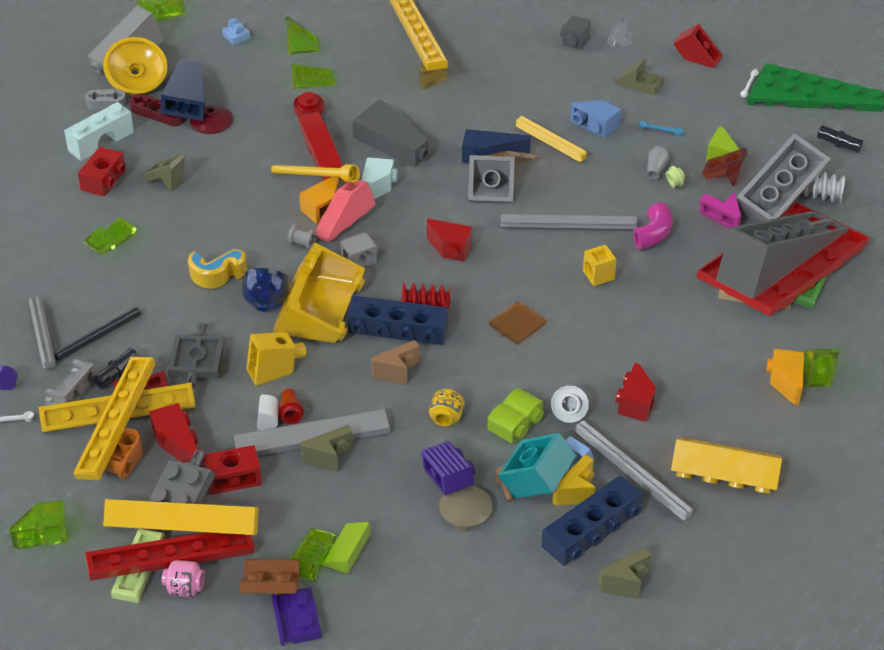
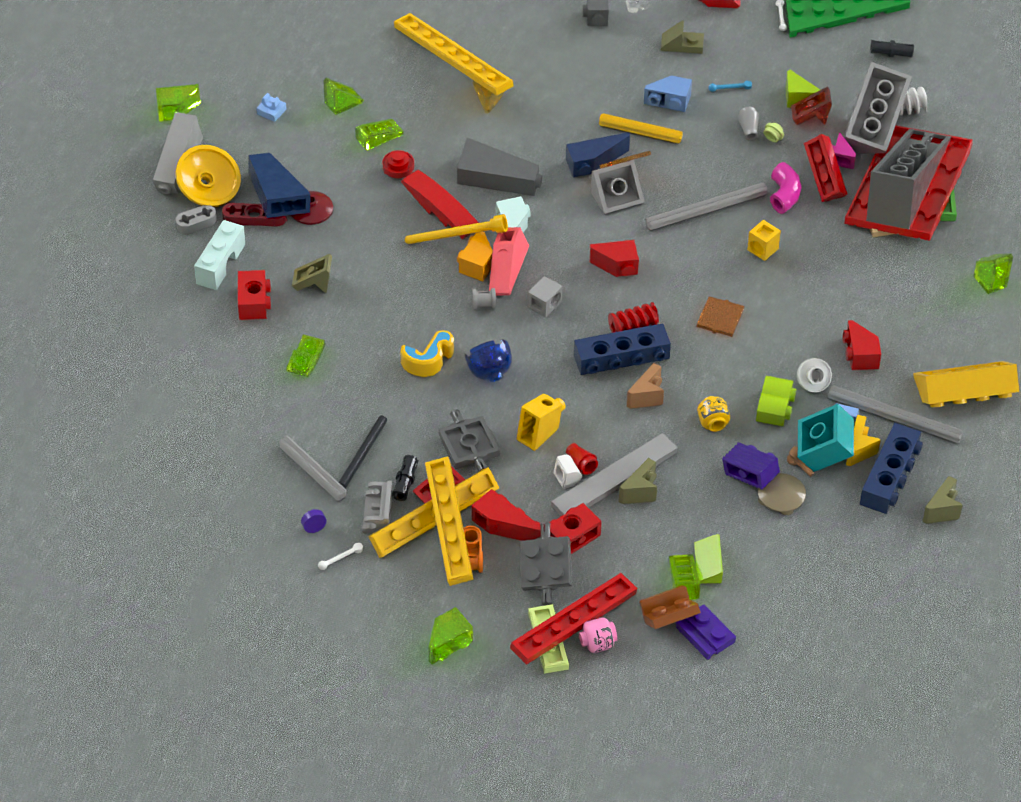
camera: 25 degrees left, 5 degrees up
(181, 516) = (565, 585): yellow tile -> none
(320, 296) = (538, 351): yellow windscreen -> none
(704, 220) = (825, 168): none -> red slope
(787, 373) = (971, 288): light orange slope -> none

